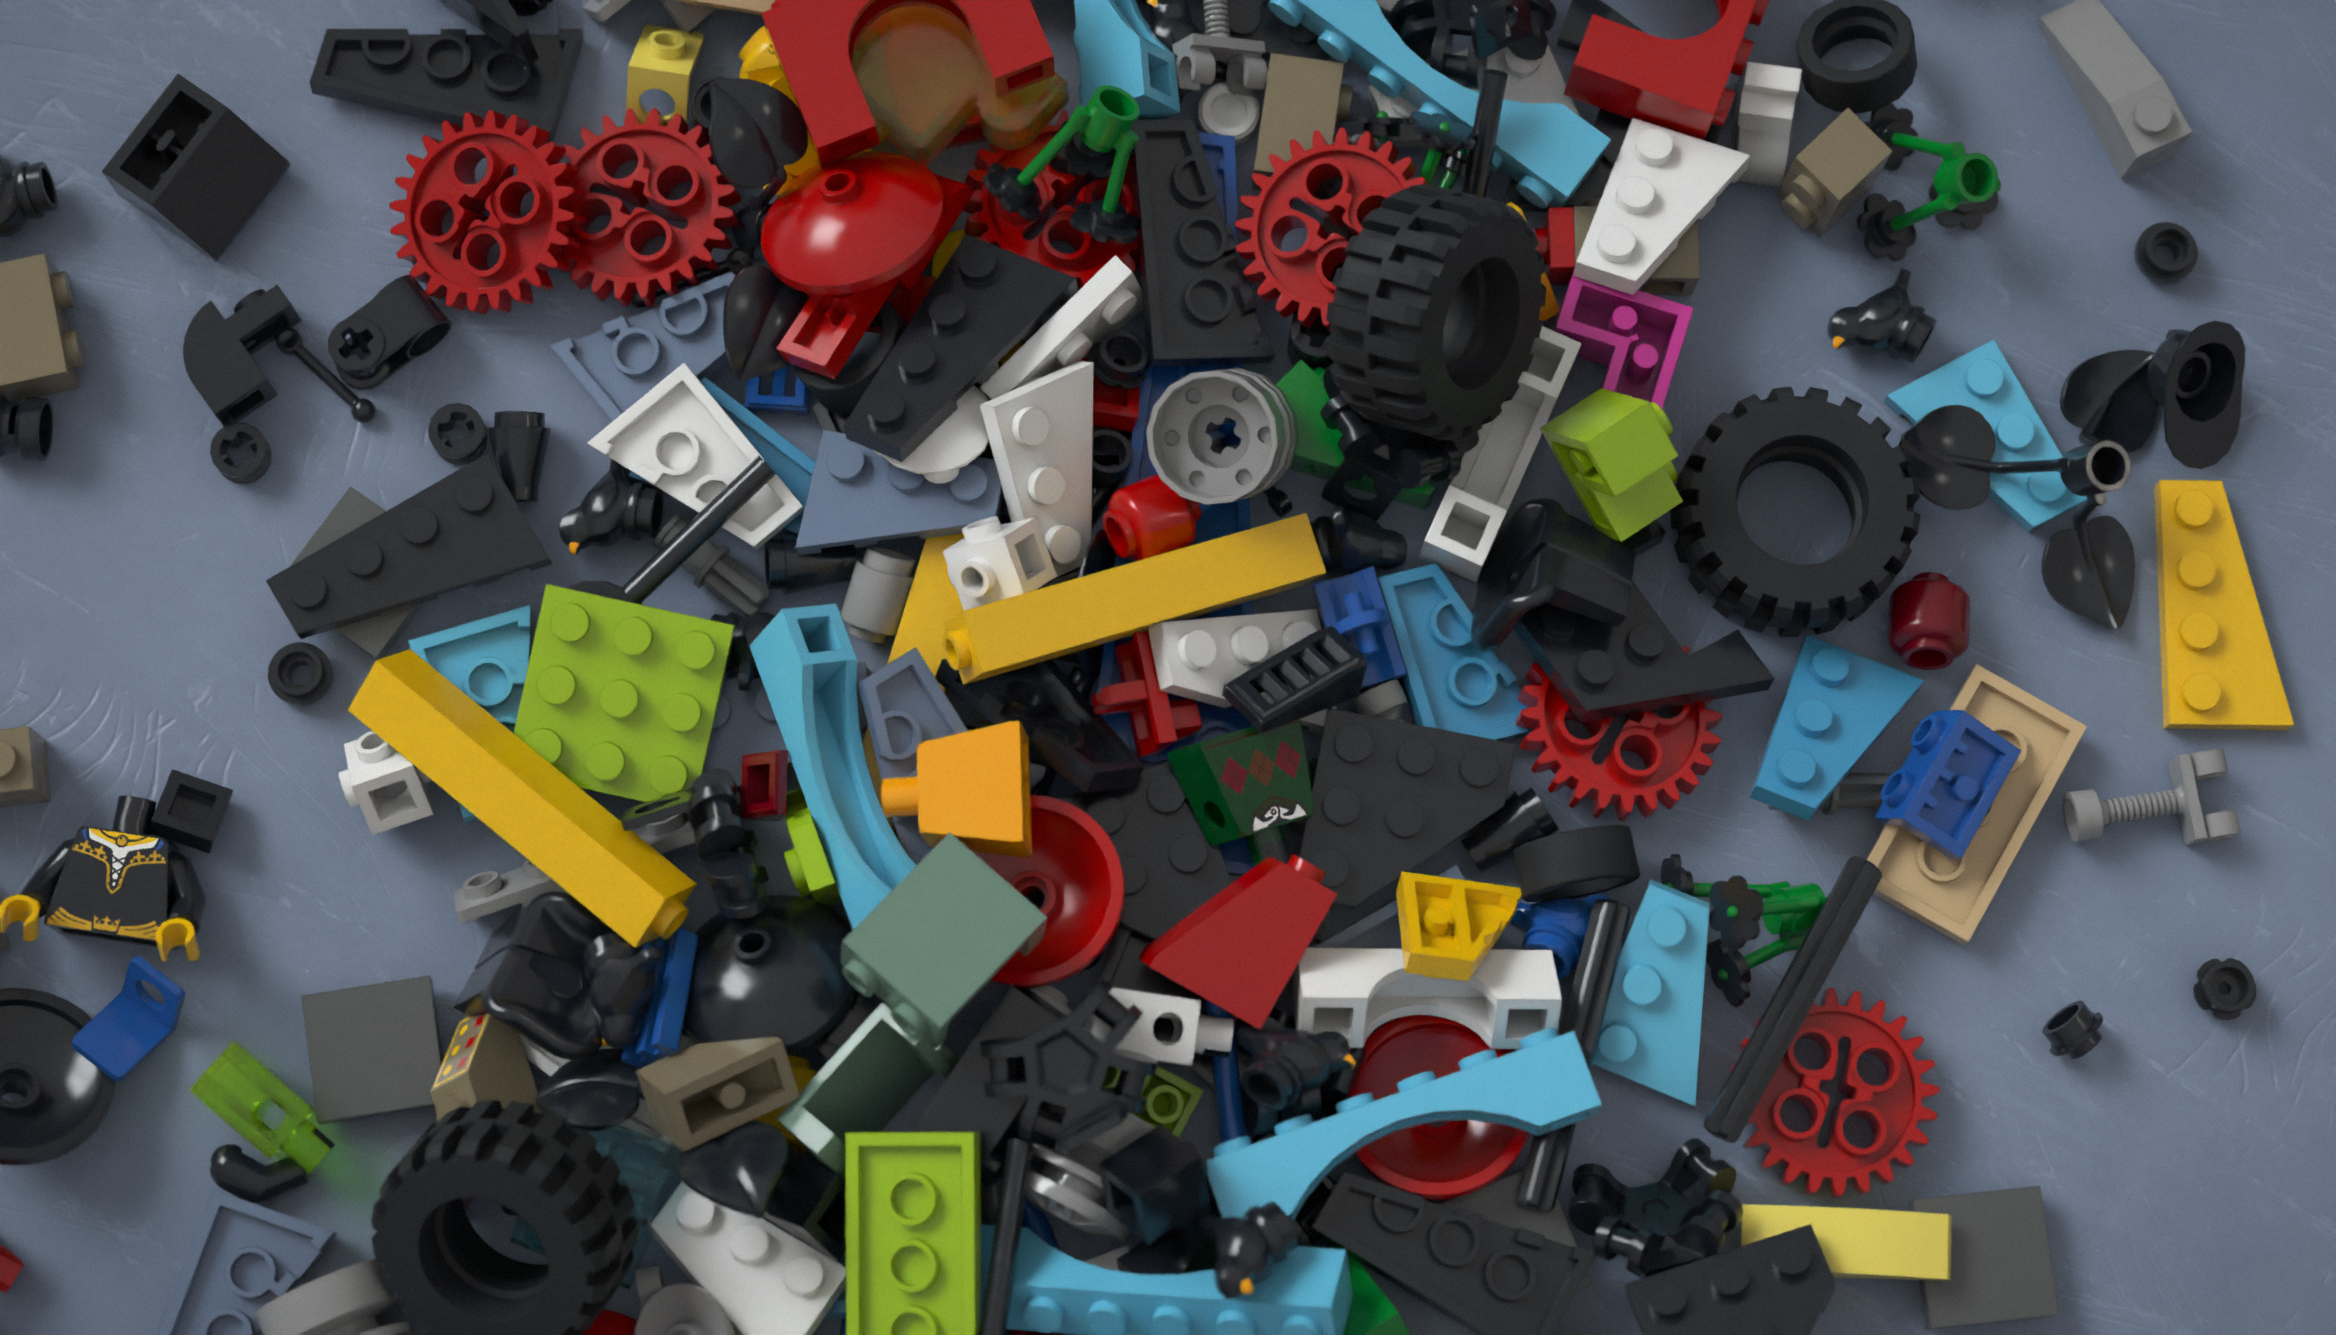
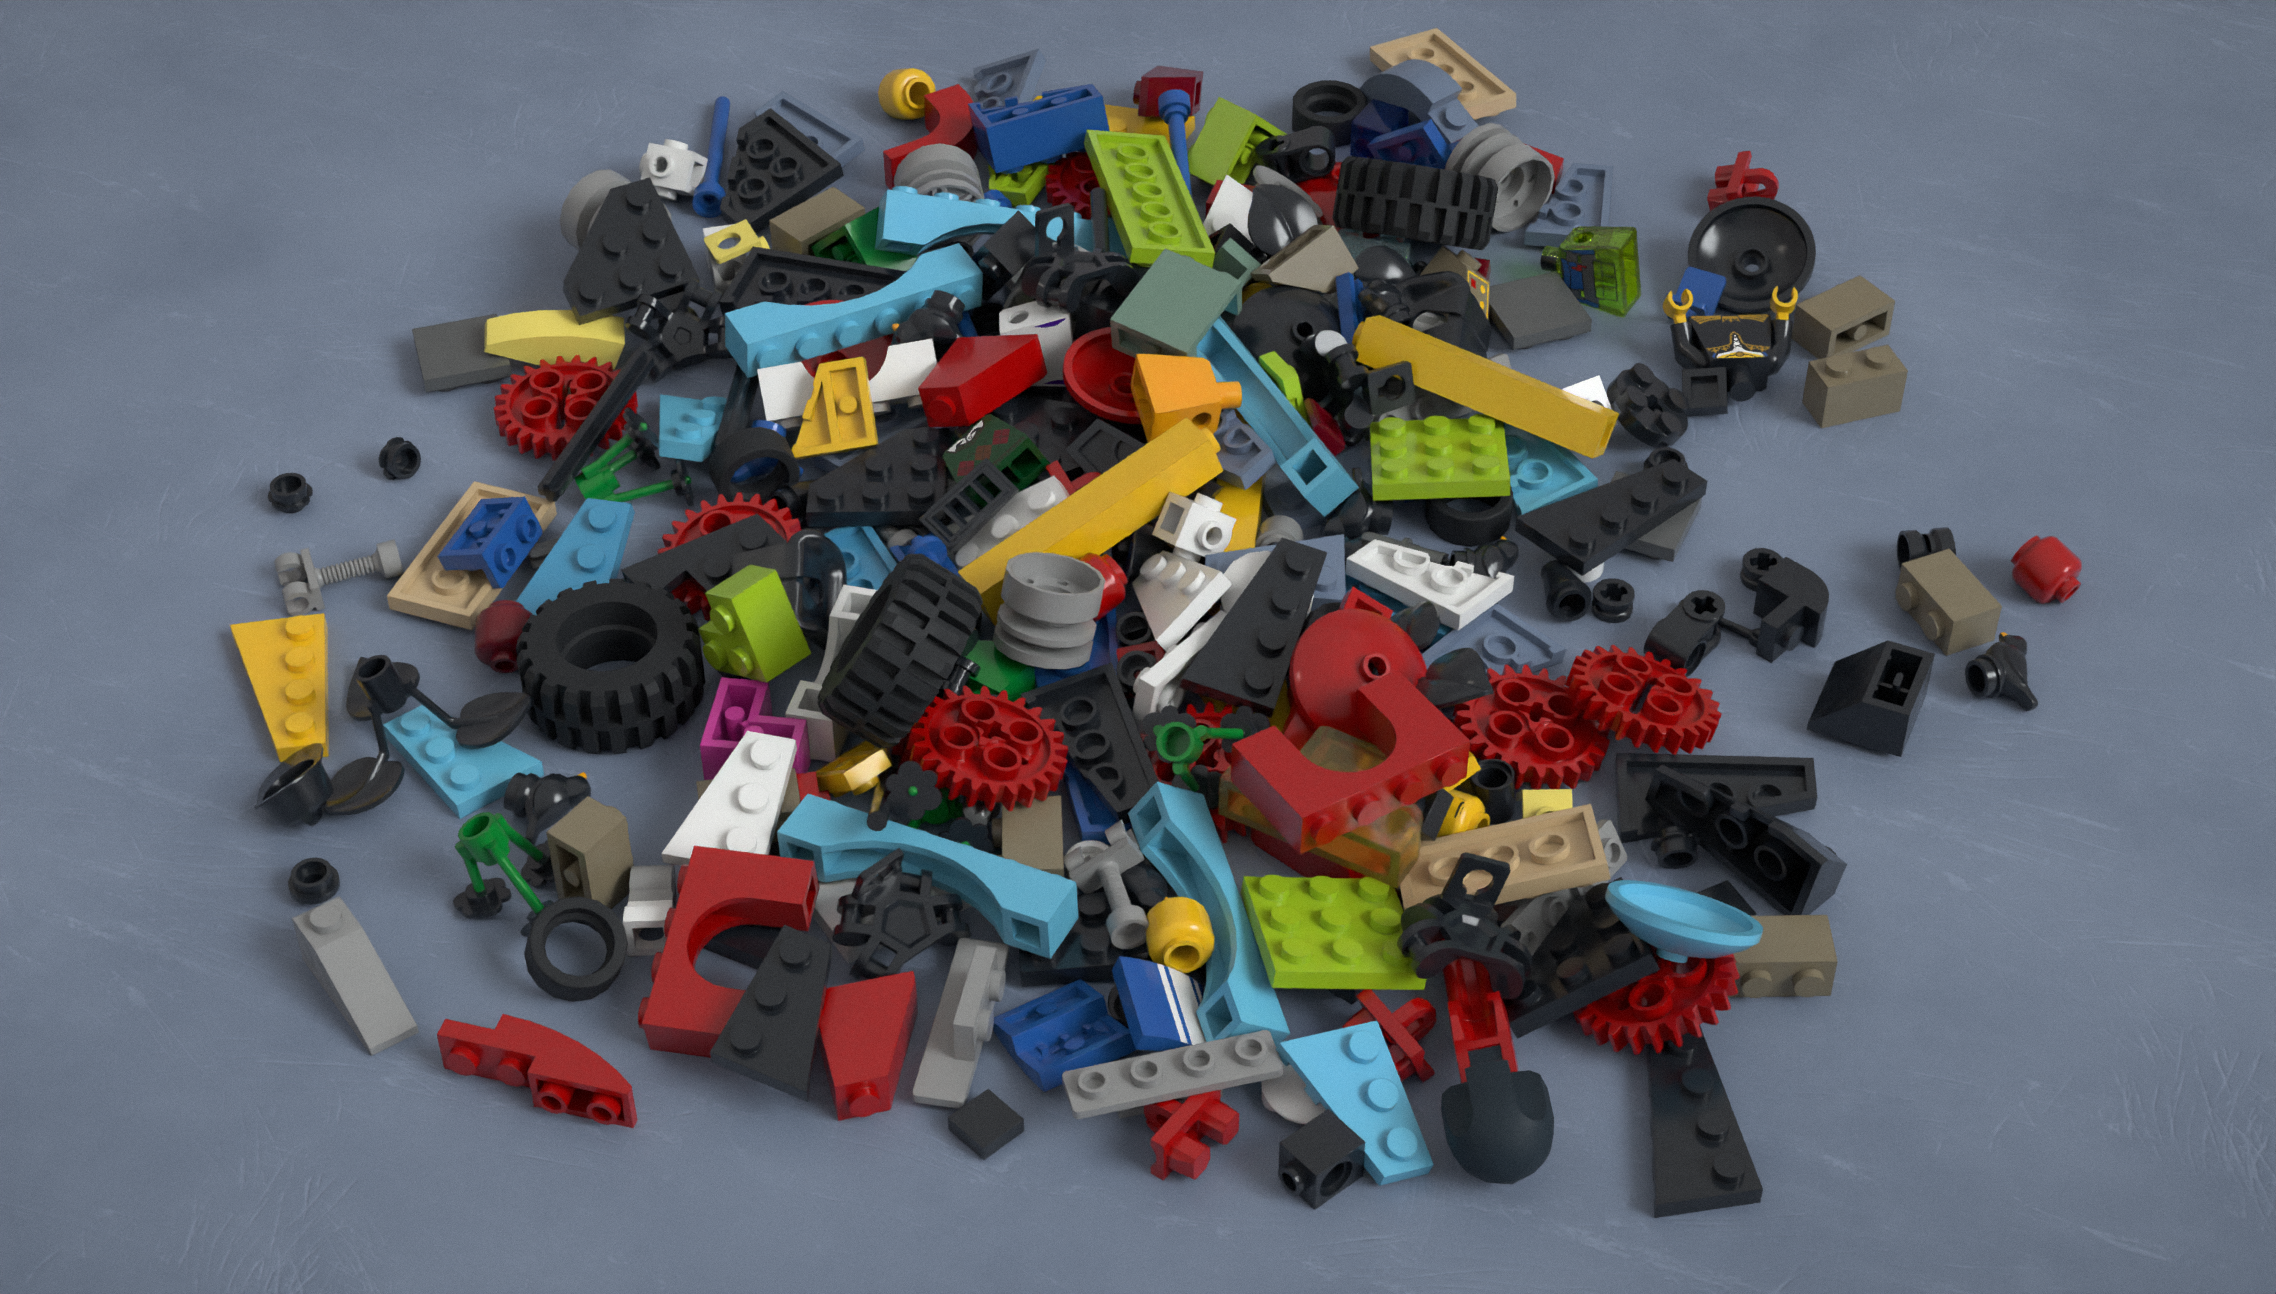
camera: 175 degrees right, 35 degrees down
(275, 745) = (1648, 406): none -> black plate
(699, 530) = (1415, 536): black bar -> none
(1248, 1246) = (945, 218): black animal -> none

